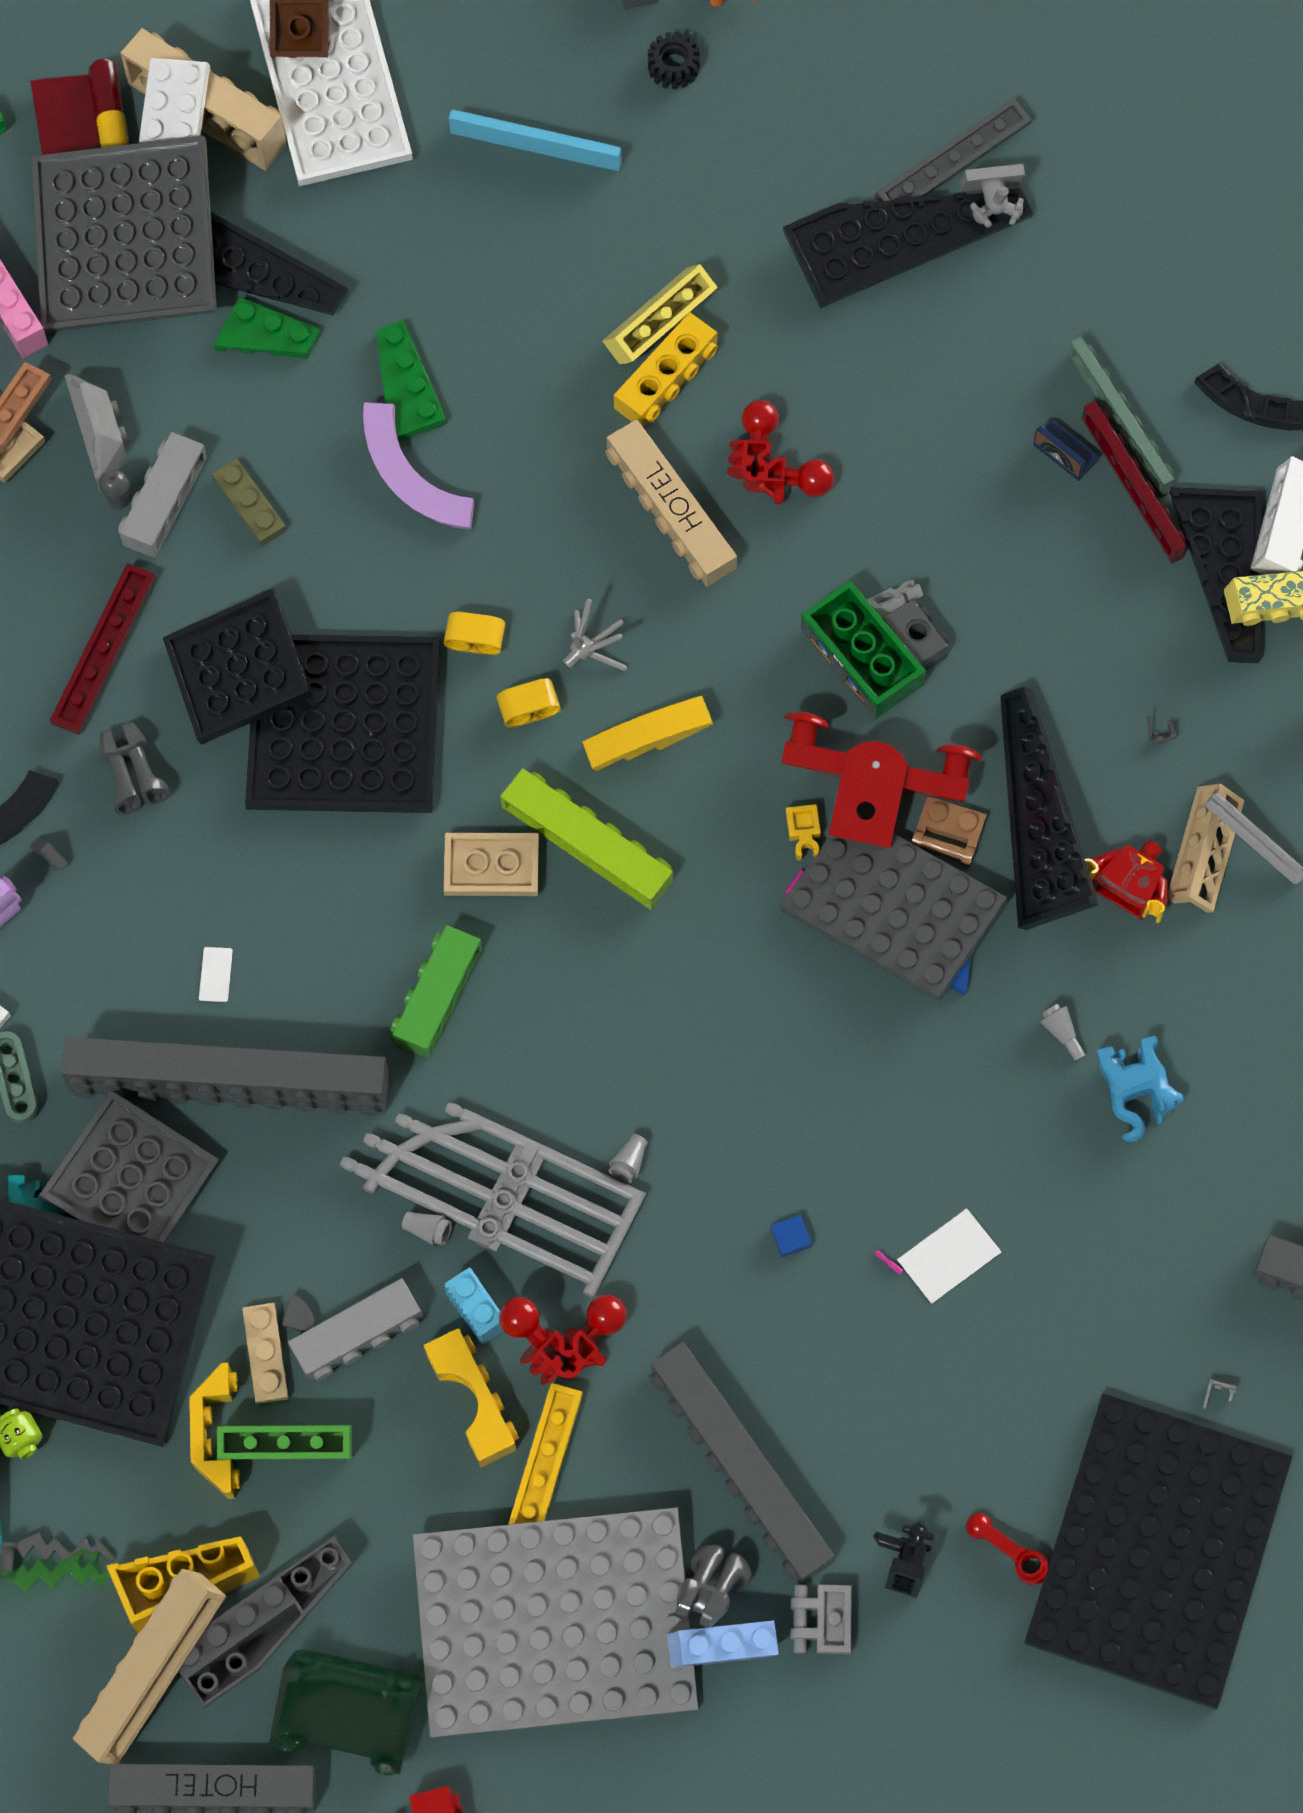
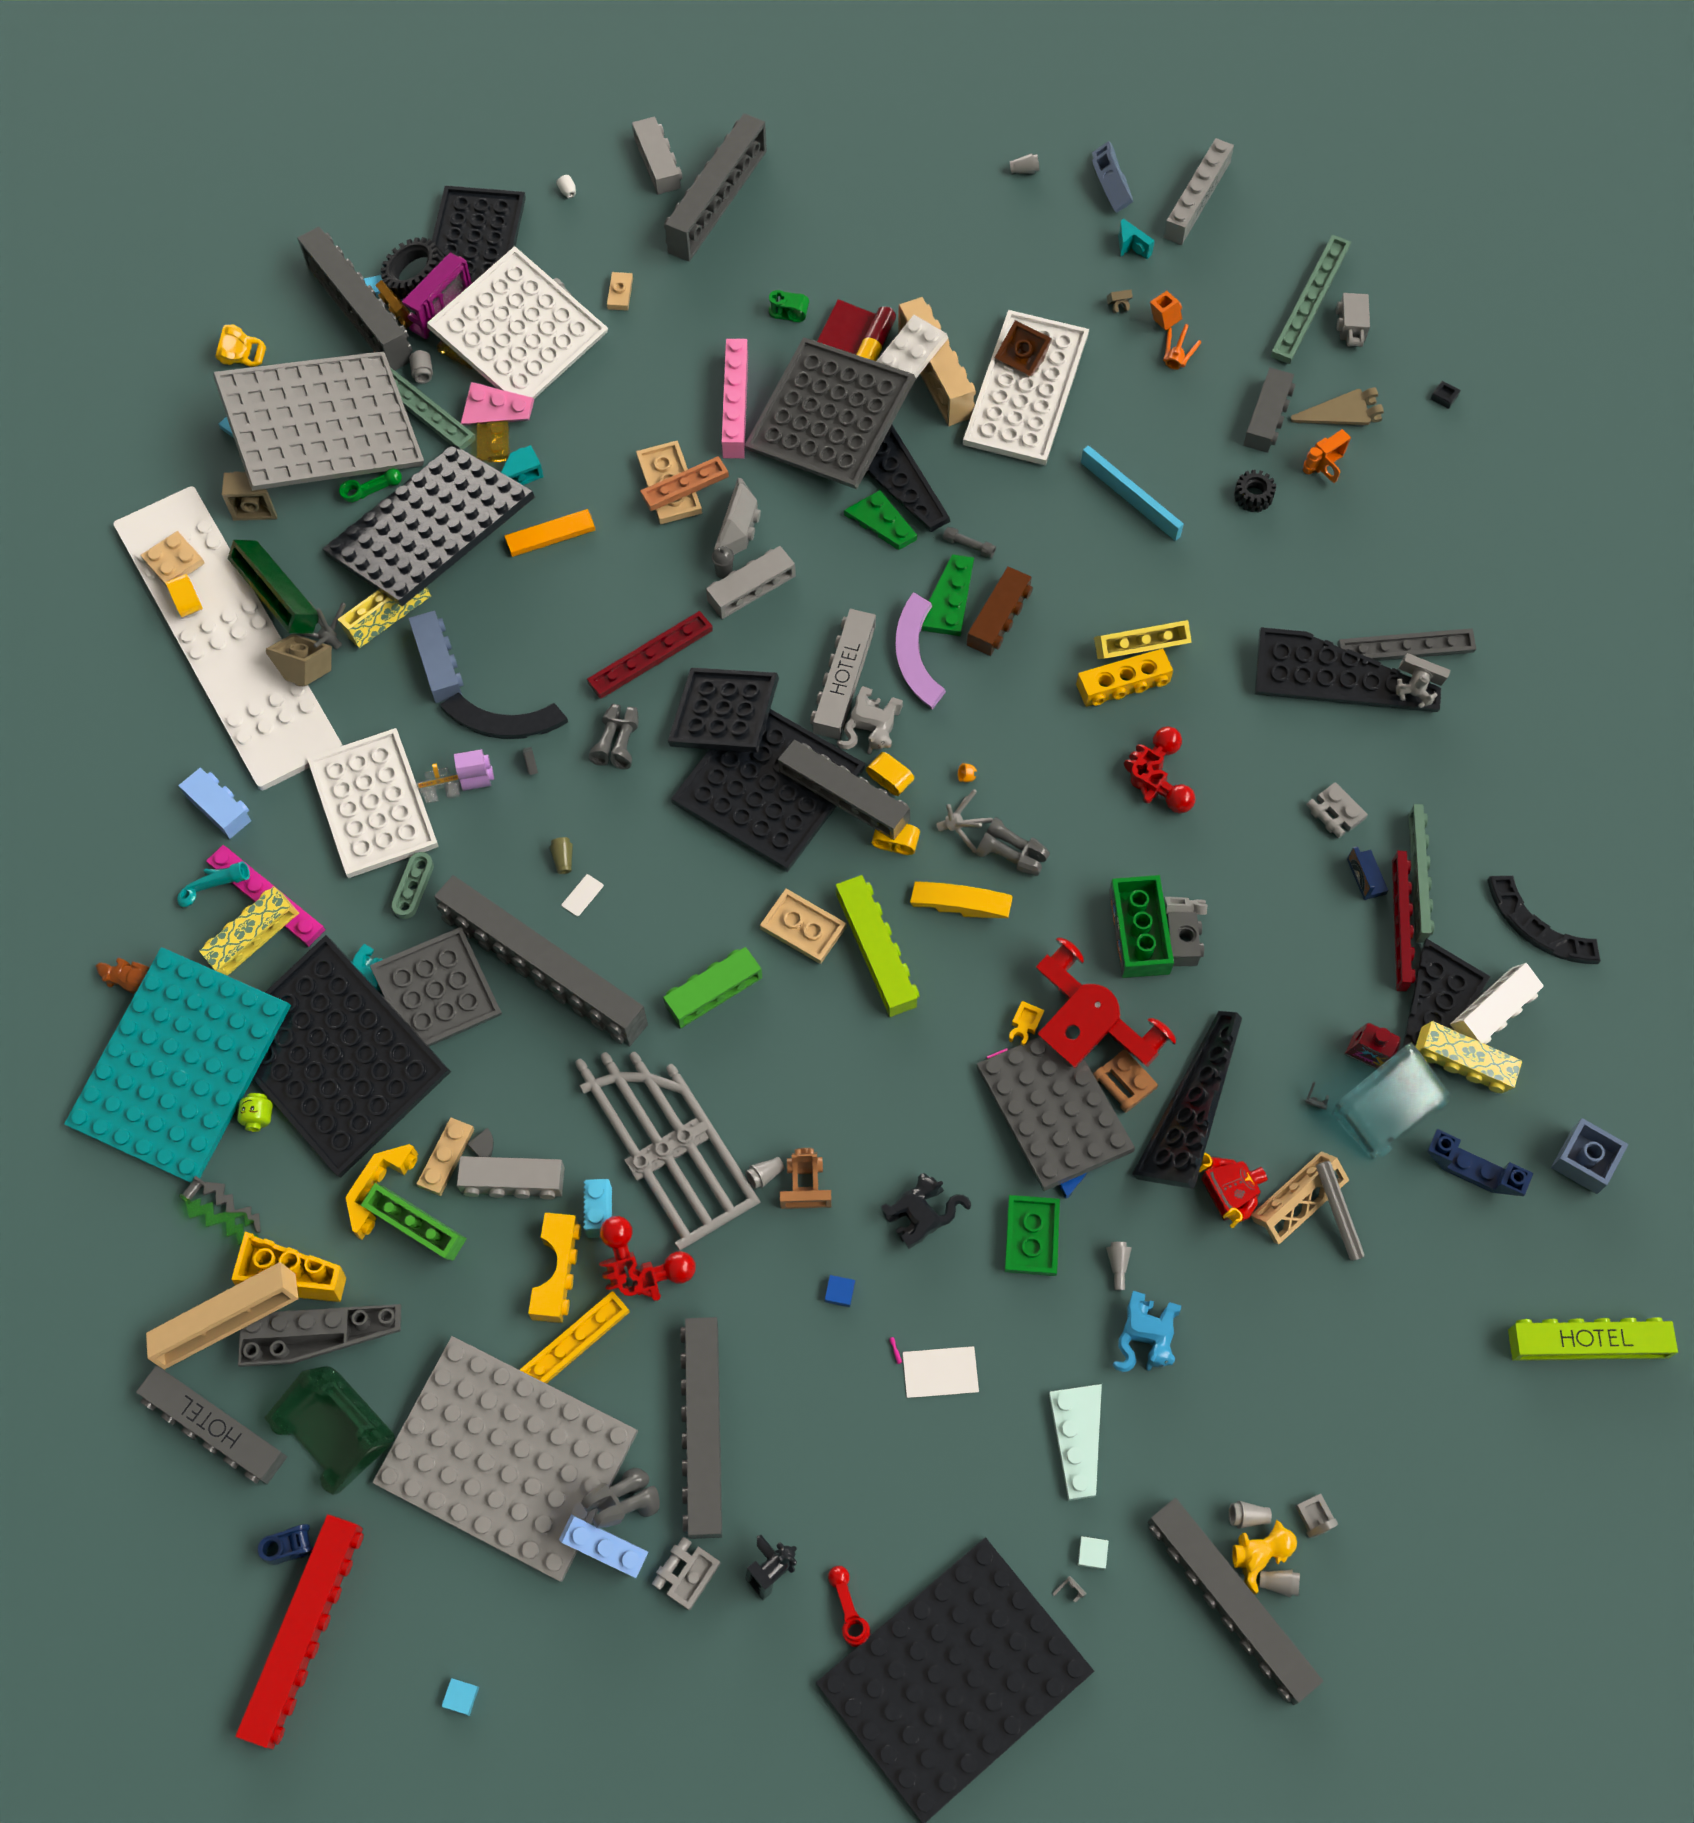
camera: 30 degrees right, 5 degrees down
(162, 941) = (562, 854): none -> olive cone
(249, 502) = (802, 616): olive plate -> none
(345, 544) = (844, 674): none -> light grey brick
(359, 306) = (952, 536): none -> dark grey bar
(413, 580) = (870, 717): none -> light grey animal
(430, 1228) = (604, 1139): light grey cone -> none
(439, 681) = (844, 789): none -> dark grey brick
(474, 369) = (999, 611): none -> reddish brown brick
(559, 583) = (966, 772): none -> light orange hinge
(666, 1121) = (805, 1162): none -> medium nougat tile
(671, 503) = (1074, 763): tan brick -> none
(688, 629) = (1030, 848): none -> dark grey piece
(822, 1102) = (921, 1215): none -> black animal
(955, 1055) = (1032, 1235): none -> green plate
(991, 387) = (1341, 806): none -> light grey plate
(1128, 1231) = (1077, 1432): none -> light aqua wing
(1186, 641) = (1373, 1045): none -> dark red torso
(1218, 1342) = (1093, 1553): none -> light aqua tile
(1241, 690) = (1391, 1101): none -> clear light blue windscreen

